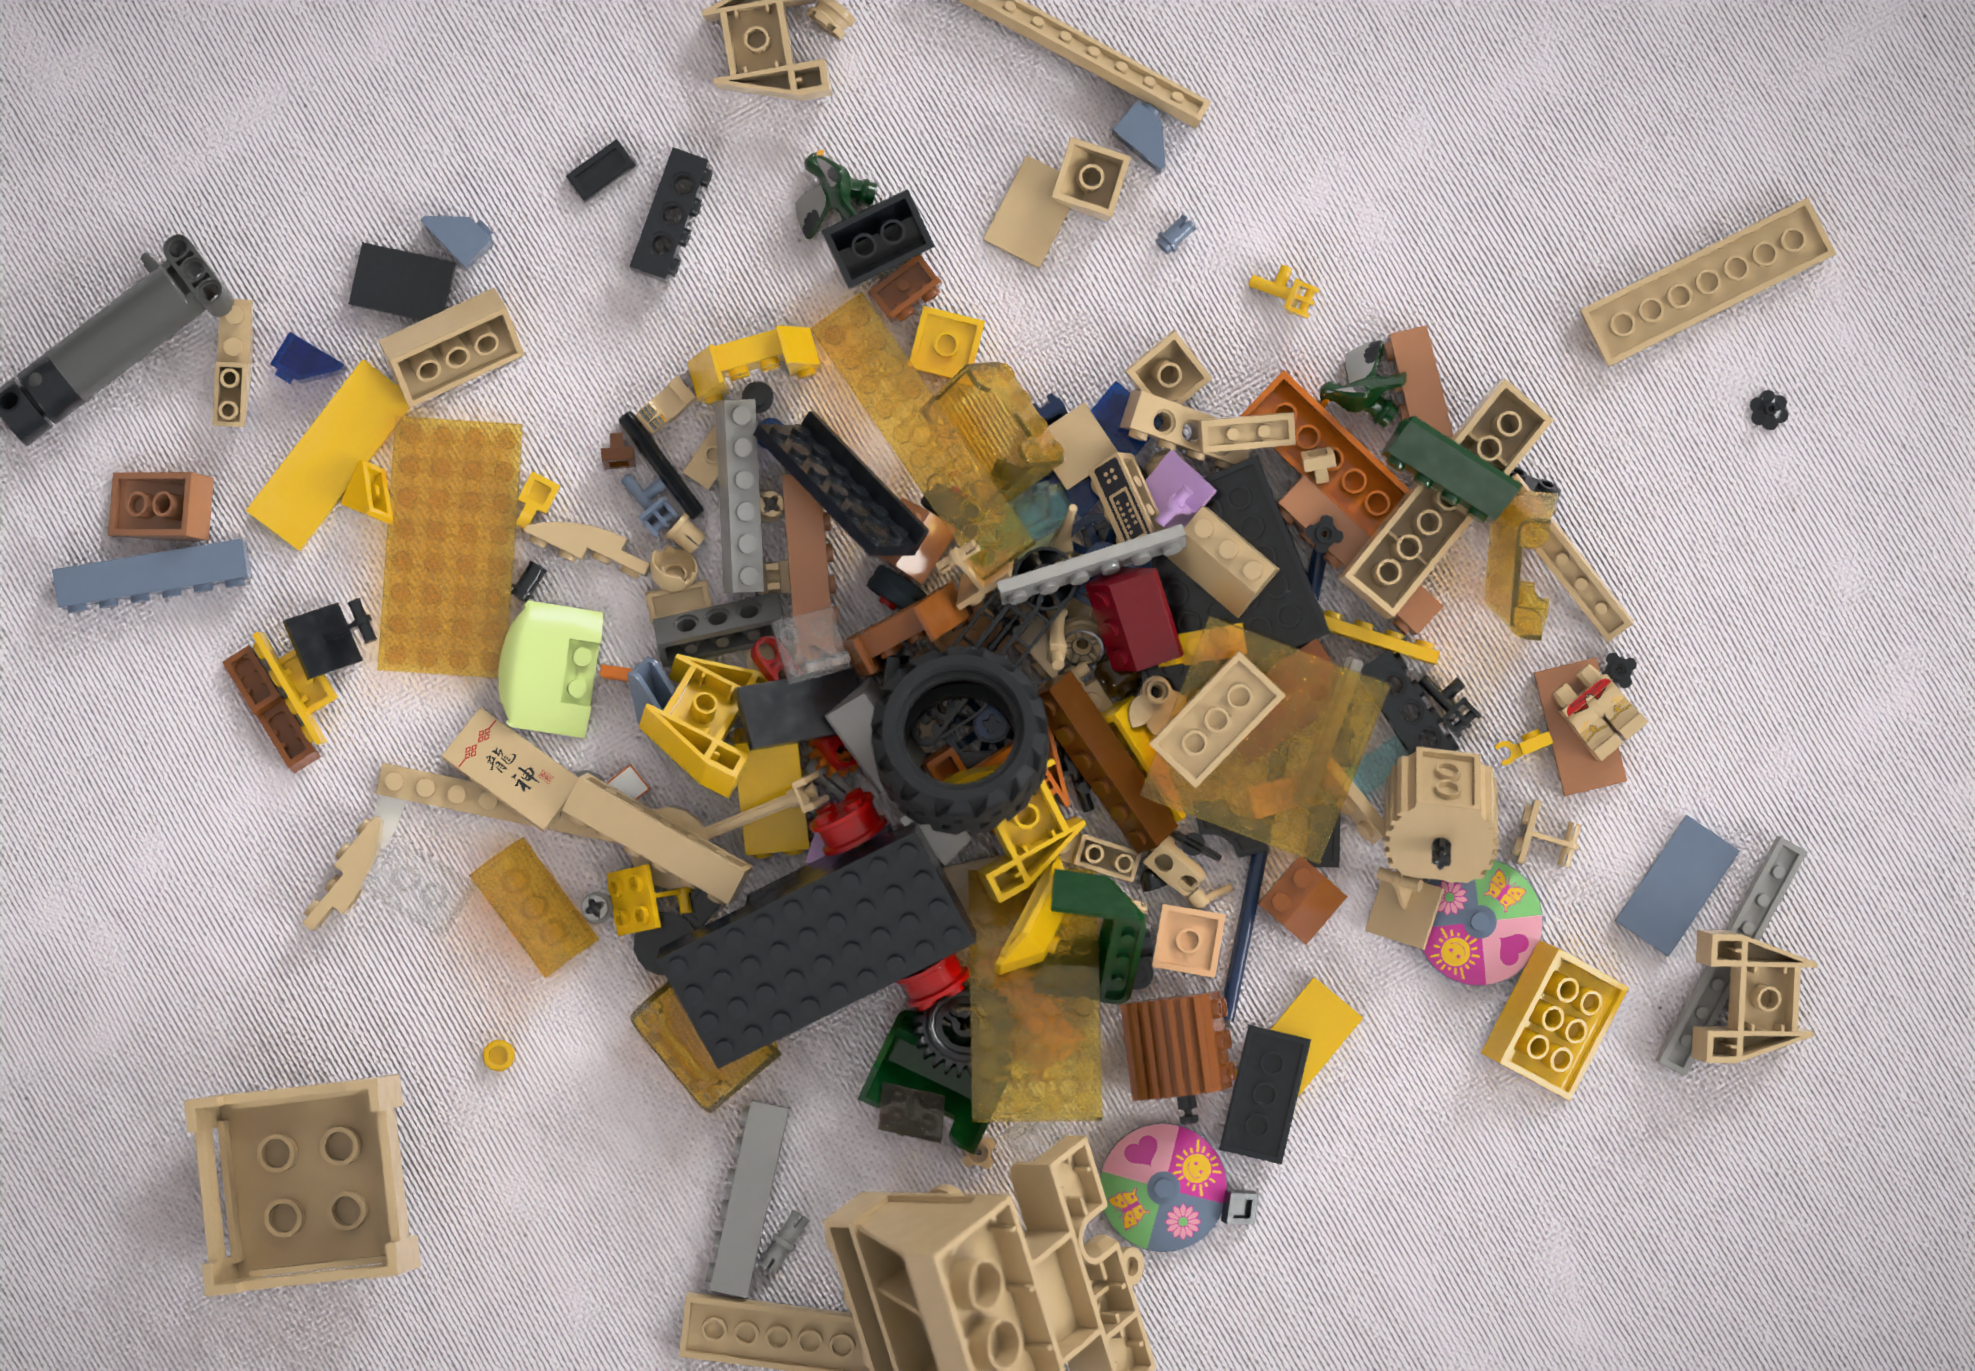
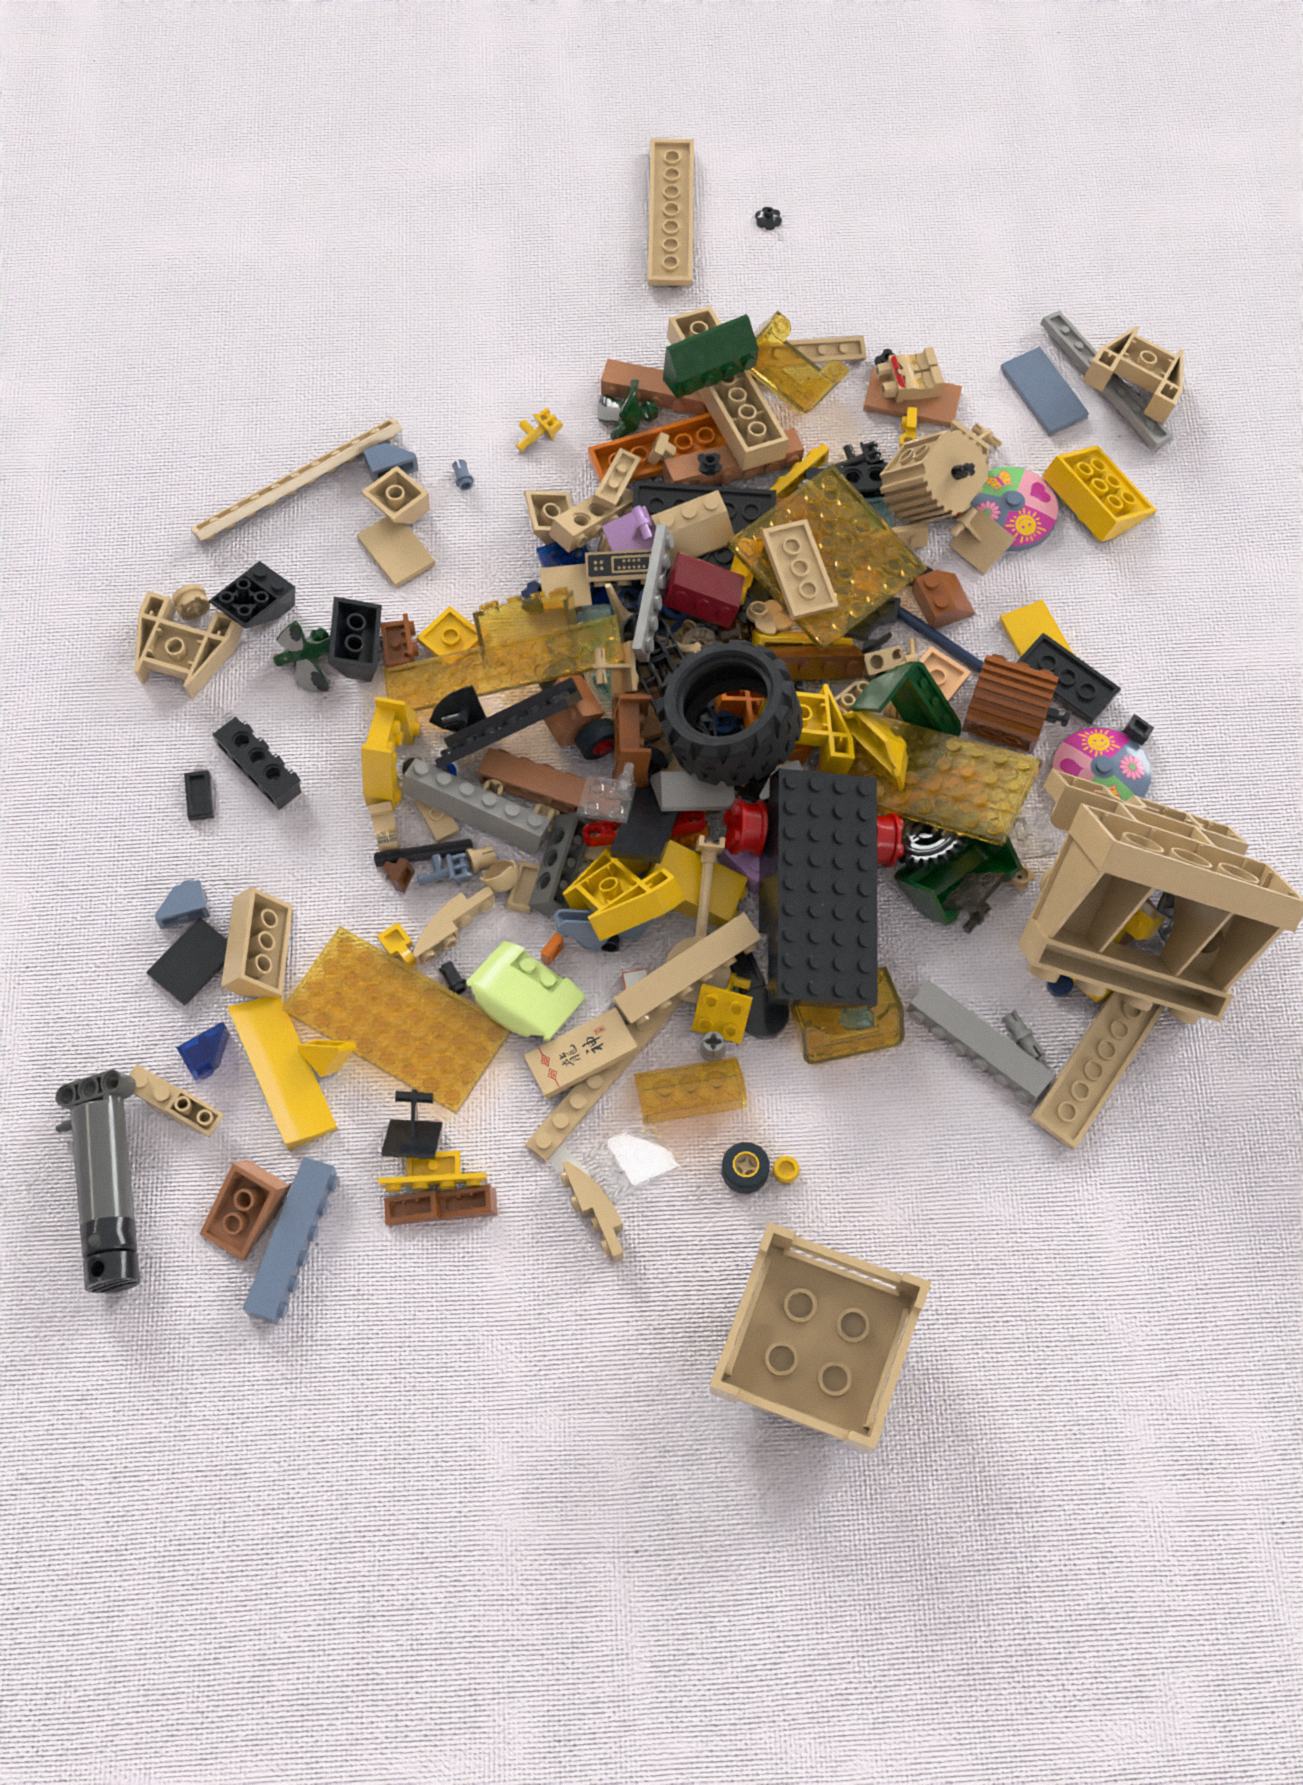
camera: 65 degrees left, 20 degrees down
(464, 1013) = (750, 1159): none -> black wheel
(697, 1054) = (857, 1018): none -> clear light blue piece
(850, 413) = (458, 710): none -> black shield
(867, 90) = (256, 597): none -> black slope

